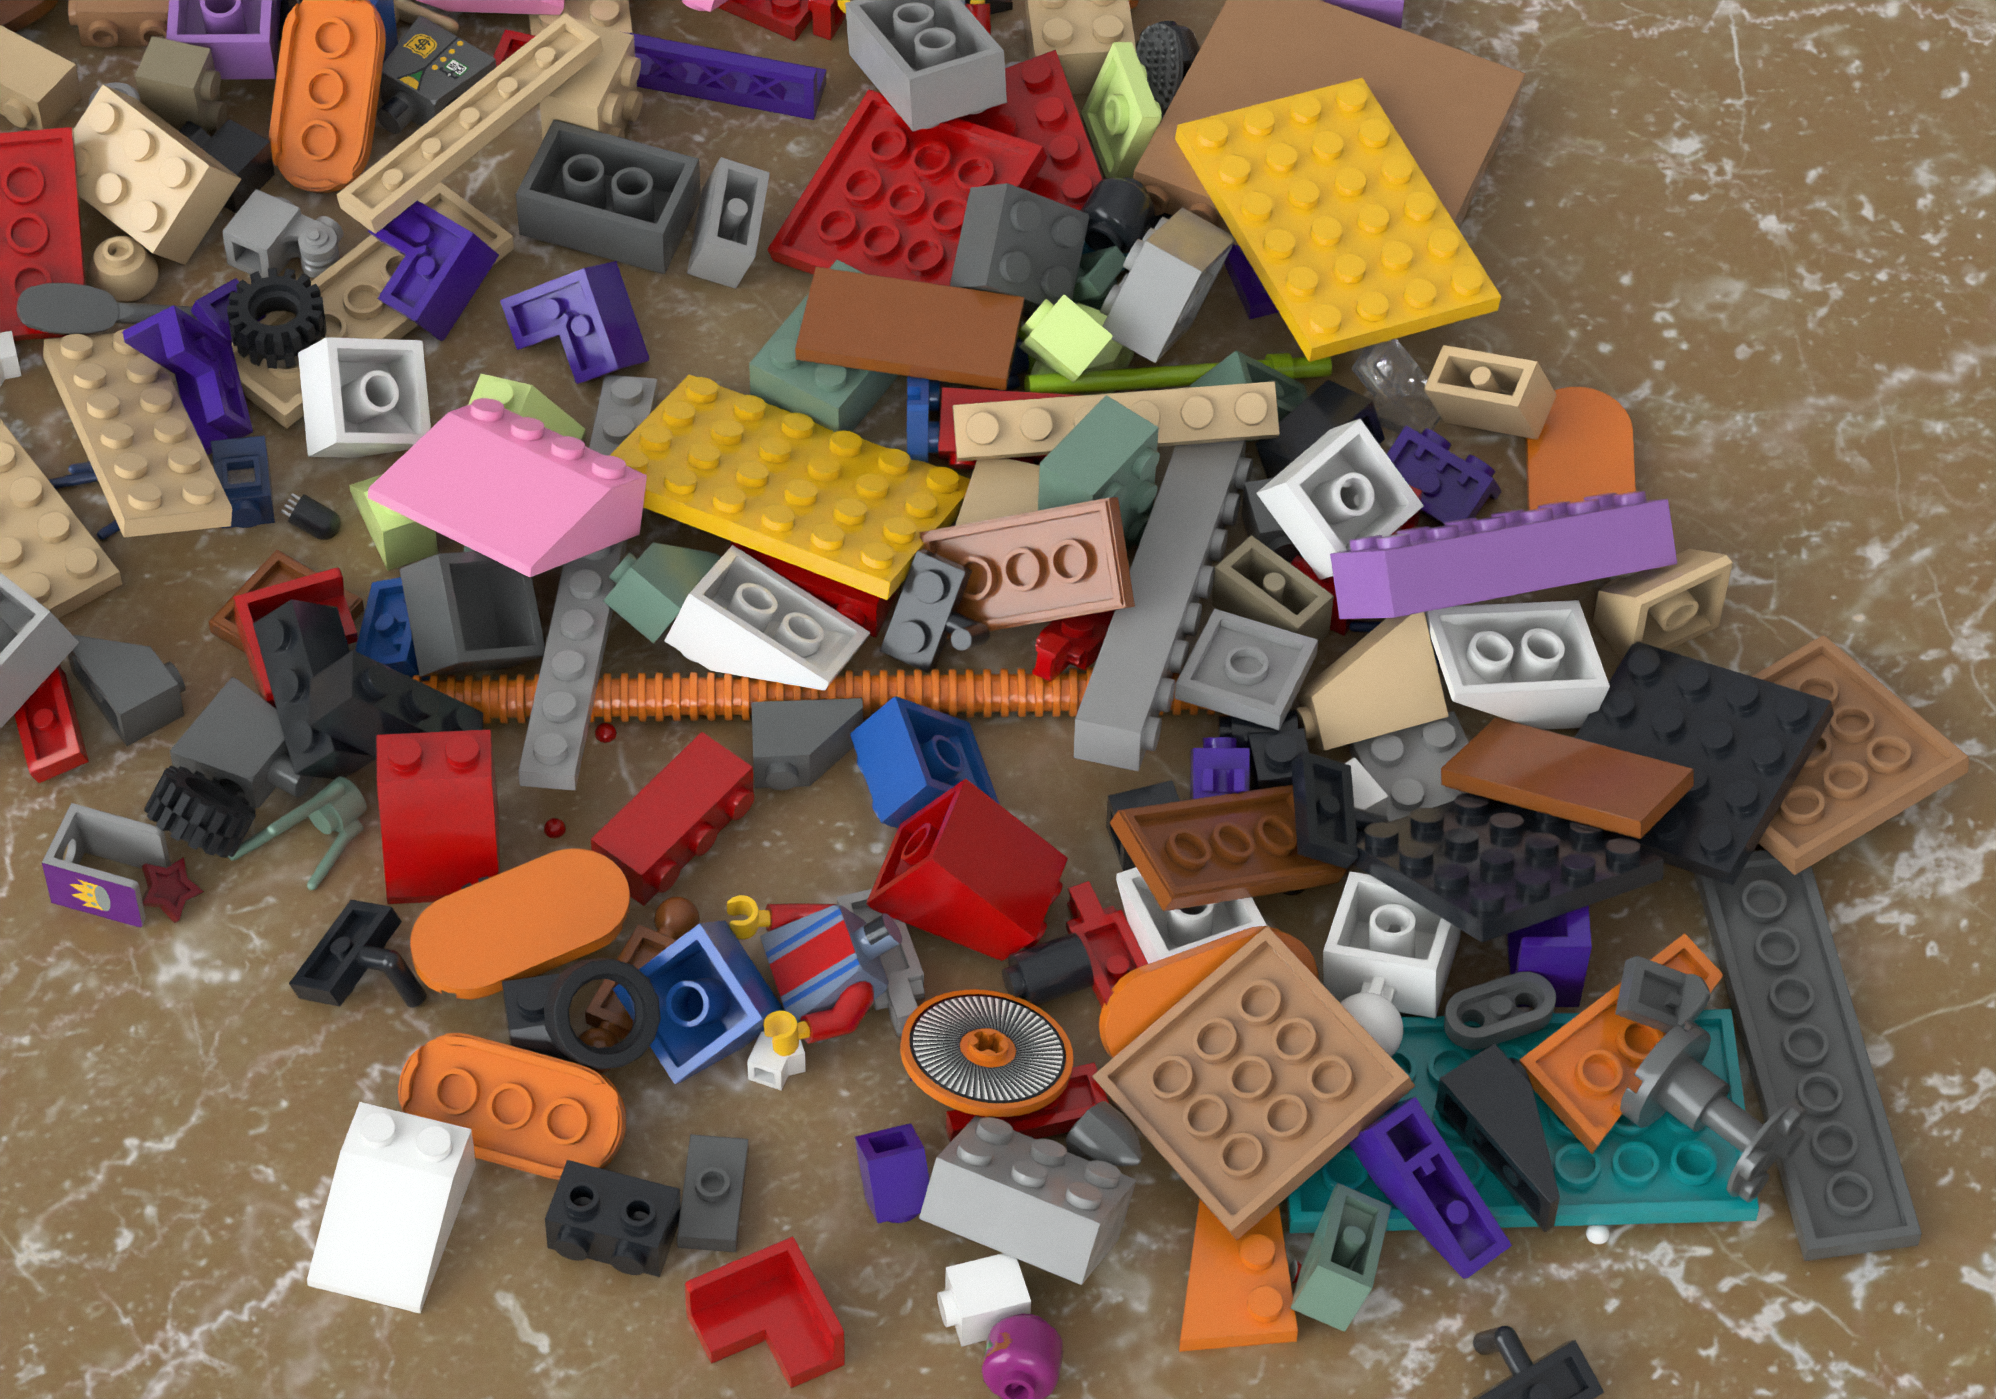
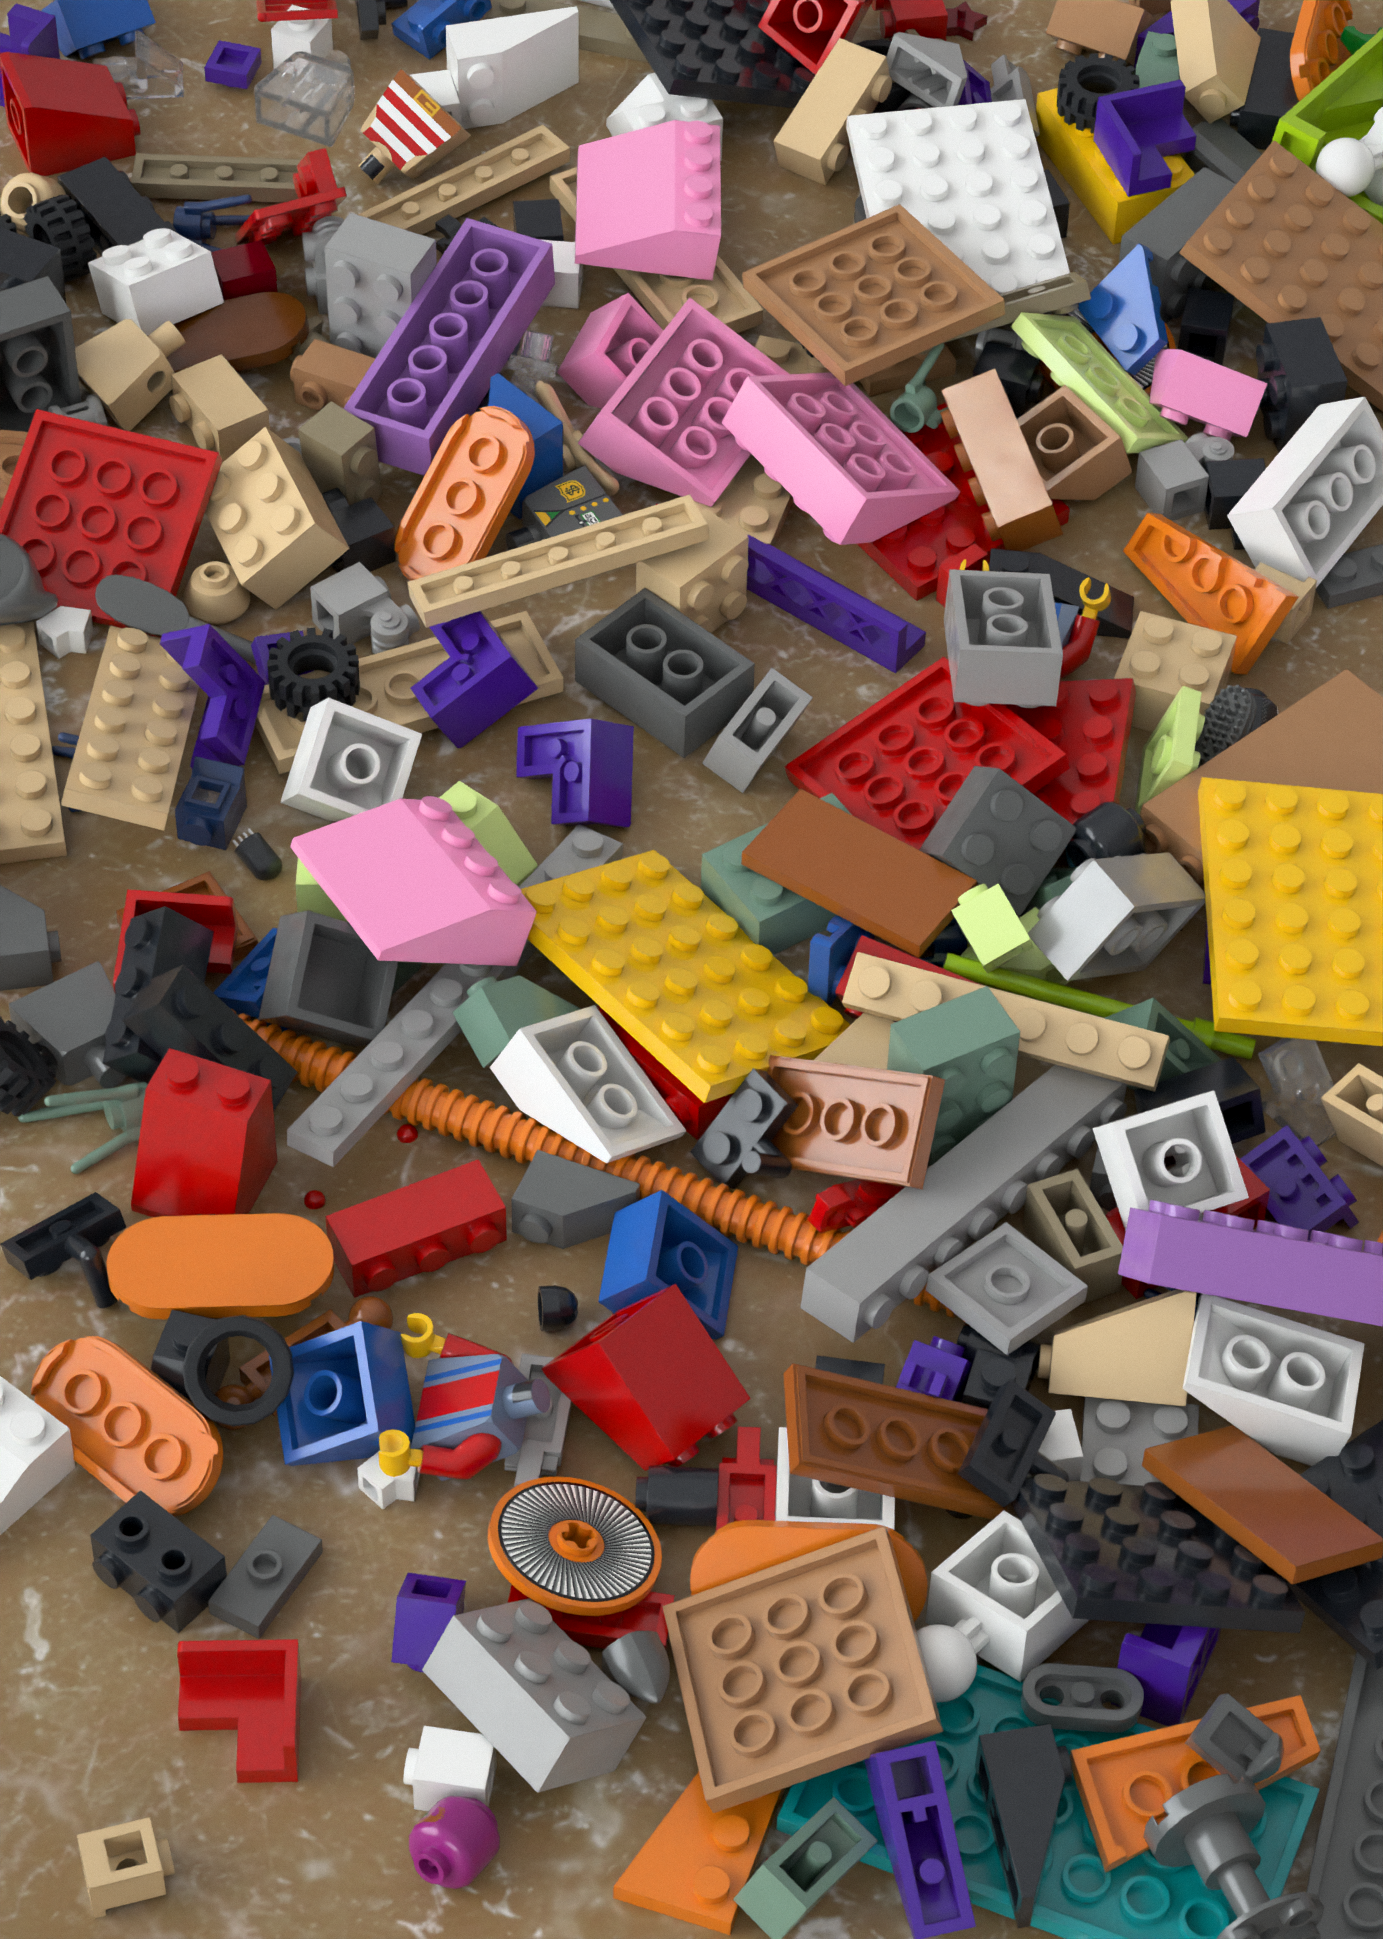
camera: 25 degrees right, 5 degrees down
(838, 843) = (556, 1307): none -> black hinge

